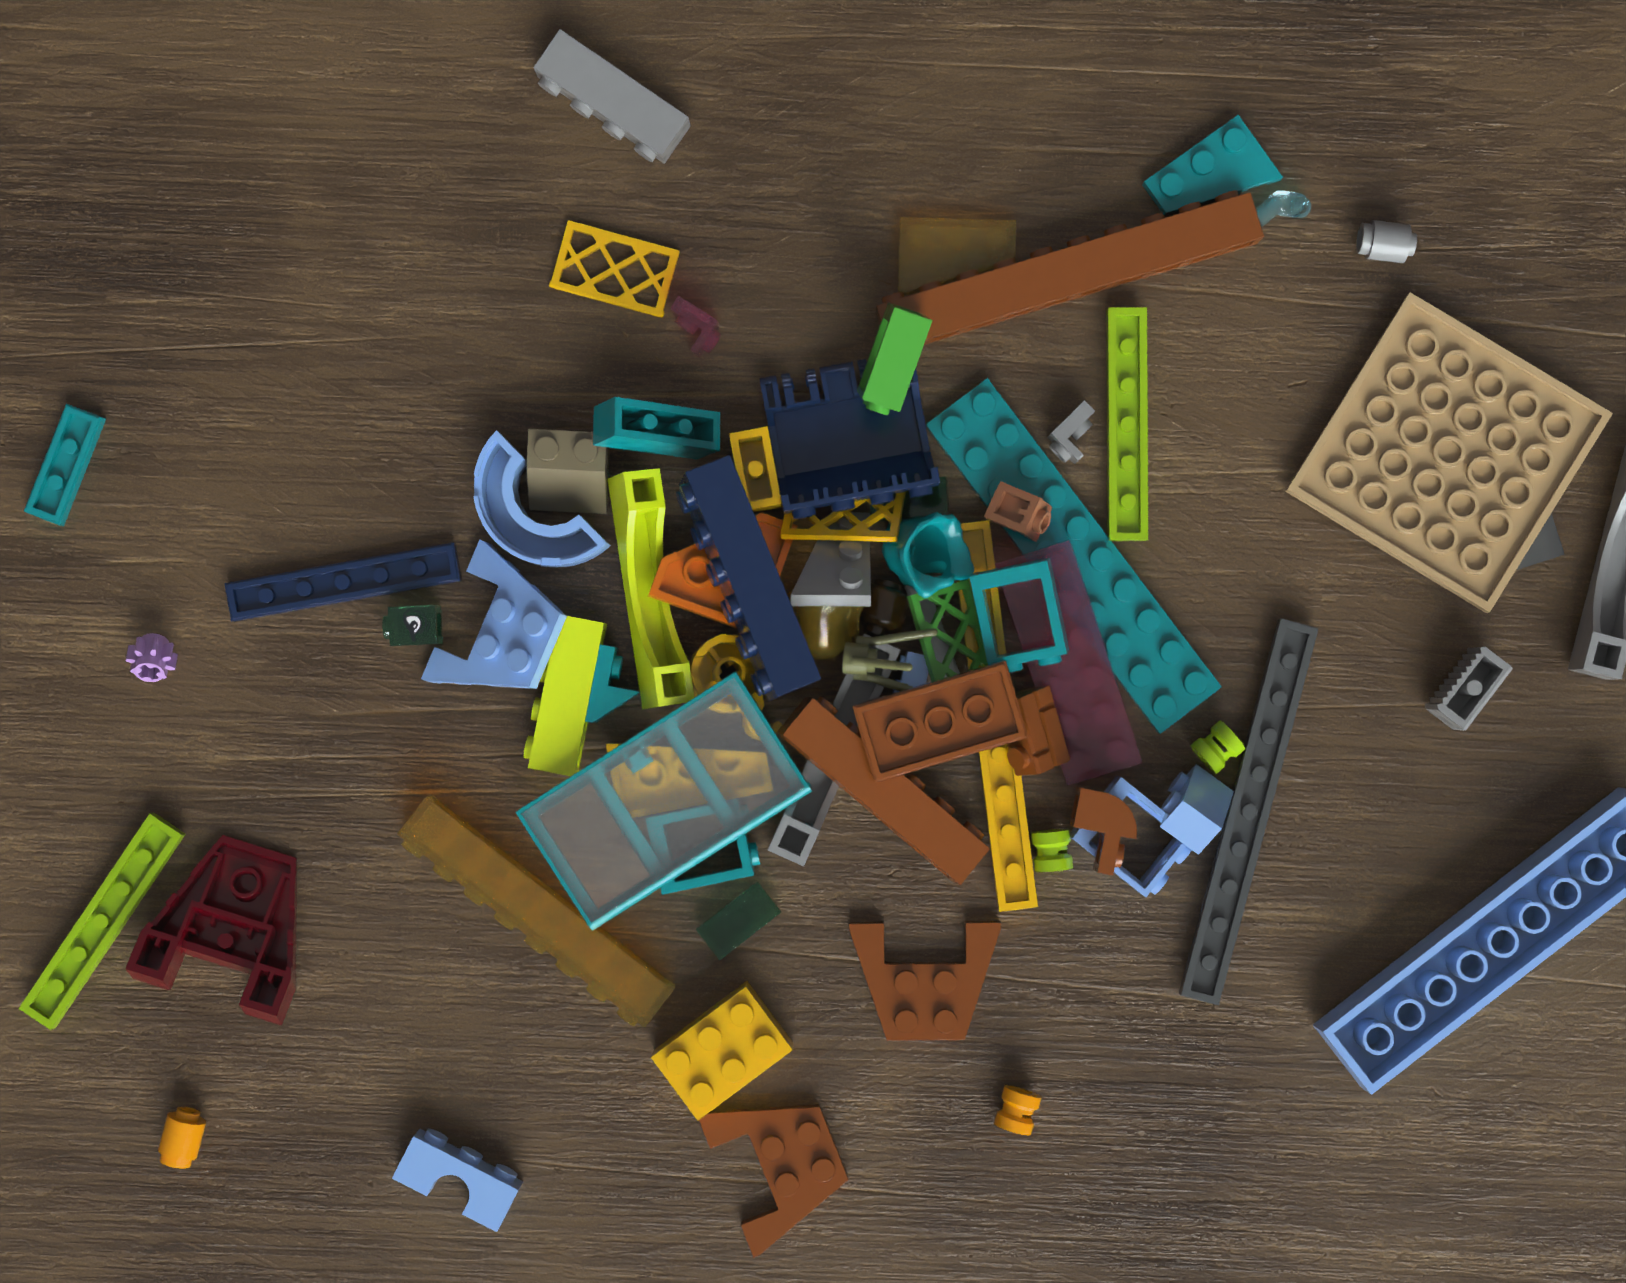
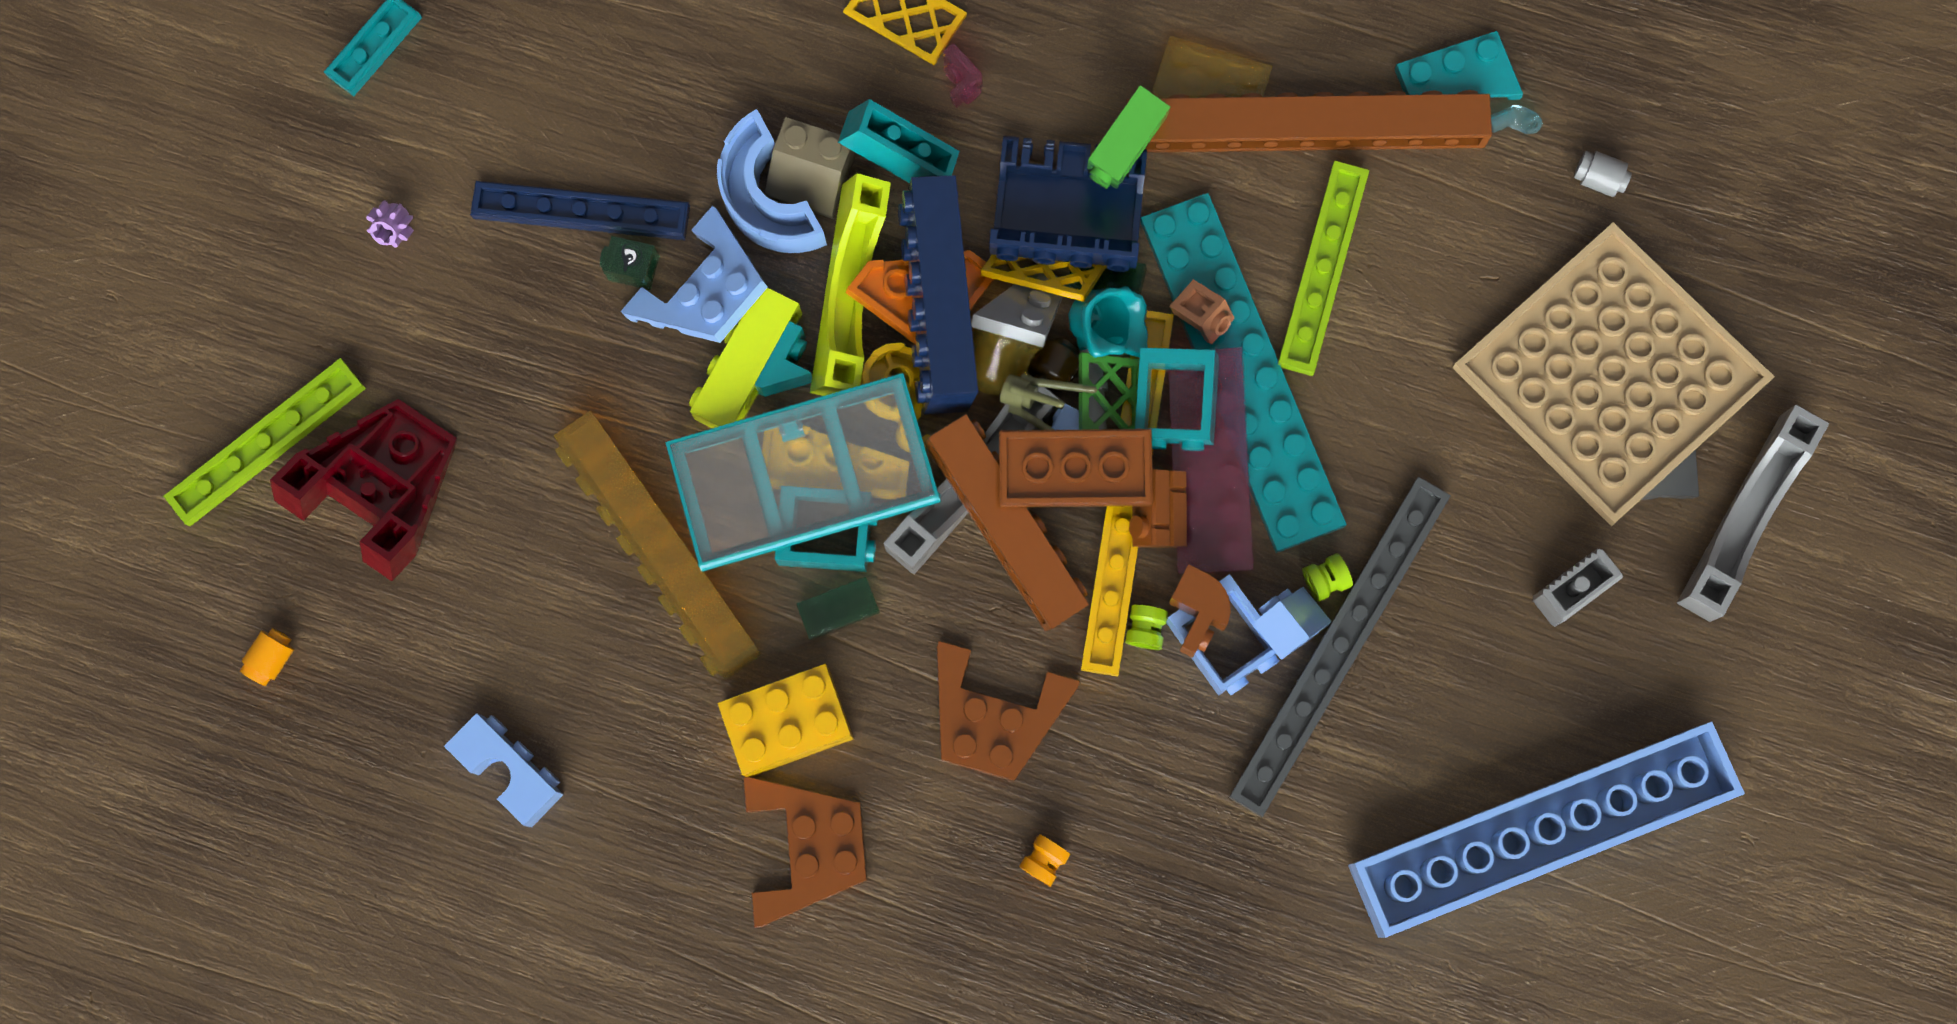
camera: 20 degrees right, 10 degrees down
(756, 468) = (977, 208): yellow brick -> none
(1074, 425) = (1274, 254): light grey bracket -> none

